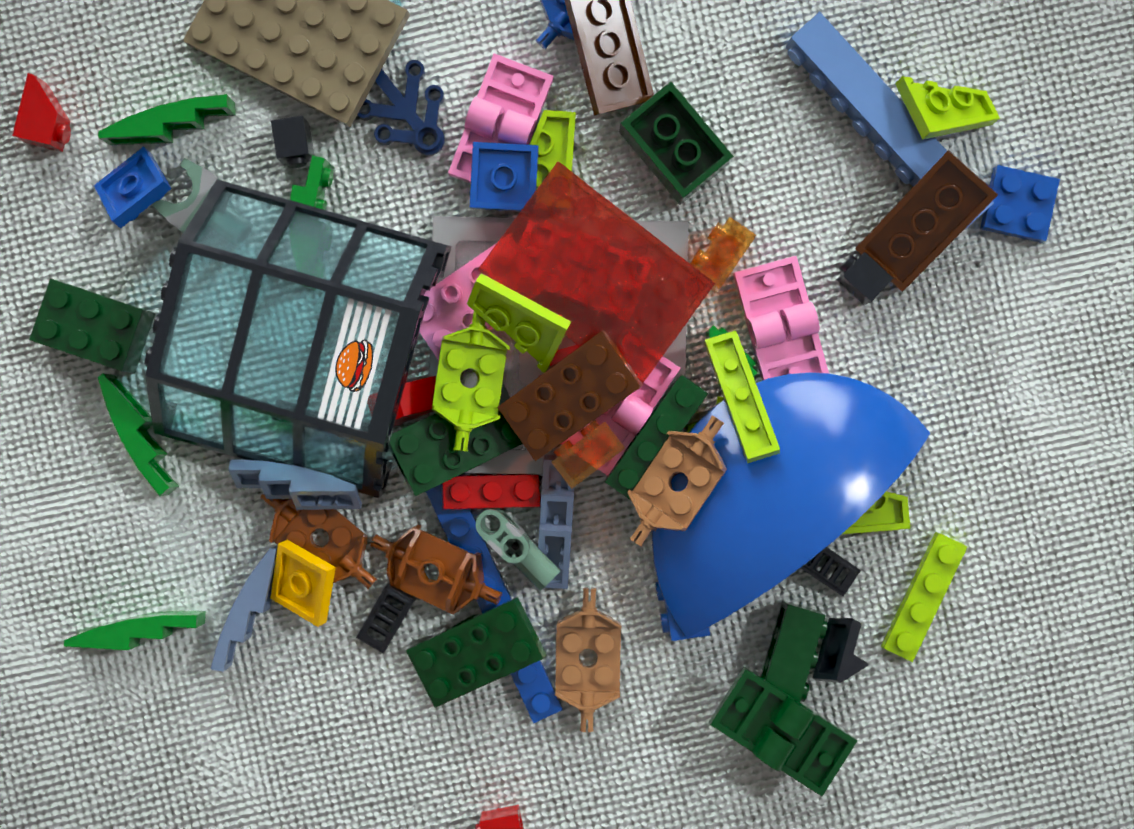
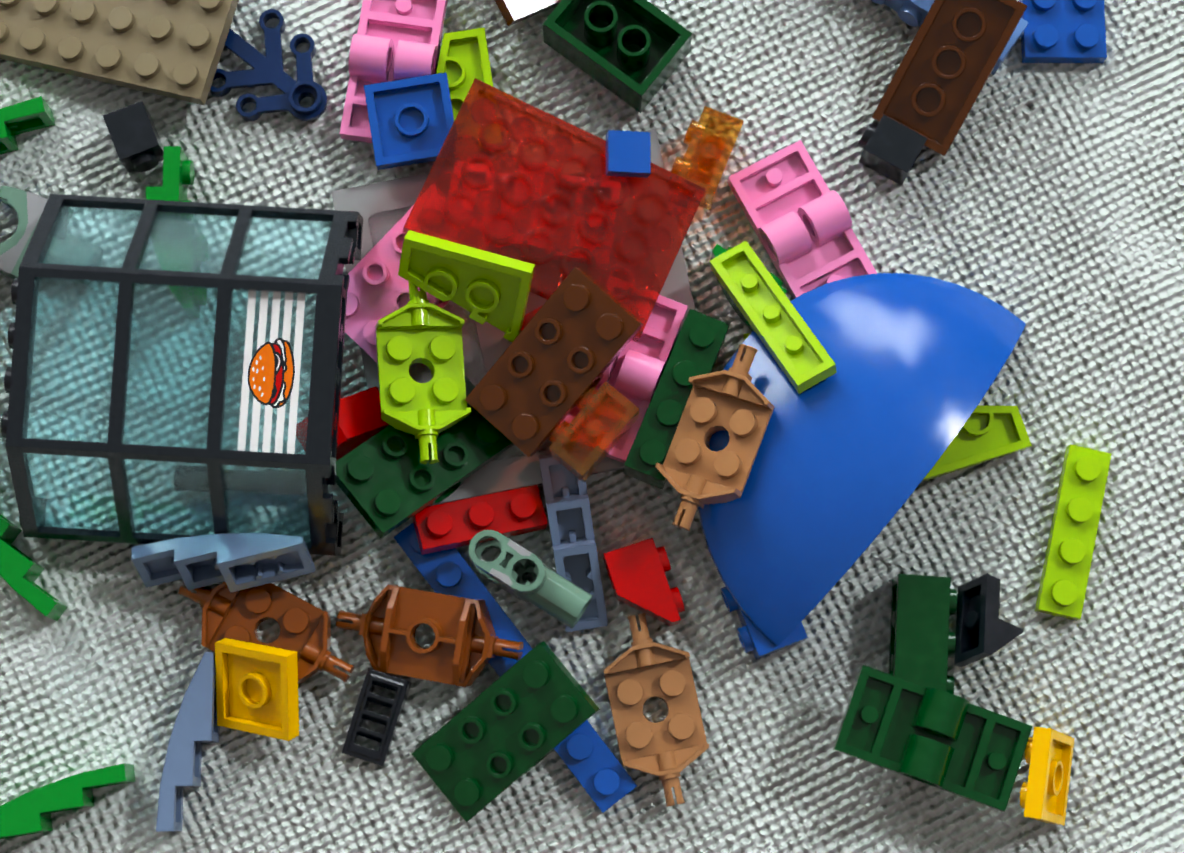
camera: 15 degrees left, 10 degrees down
(598, 564) = (641, 581): none -> red slope
(662, 245) = (628, 153): none -> blue tile
(832, 556) = (931, 534): black slope -> none
(863, 763) = (1049, 776): none -> yellow plate

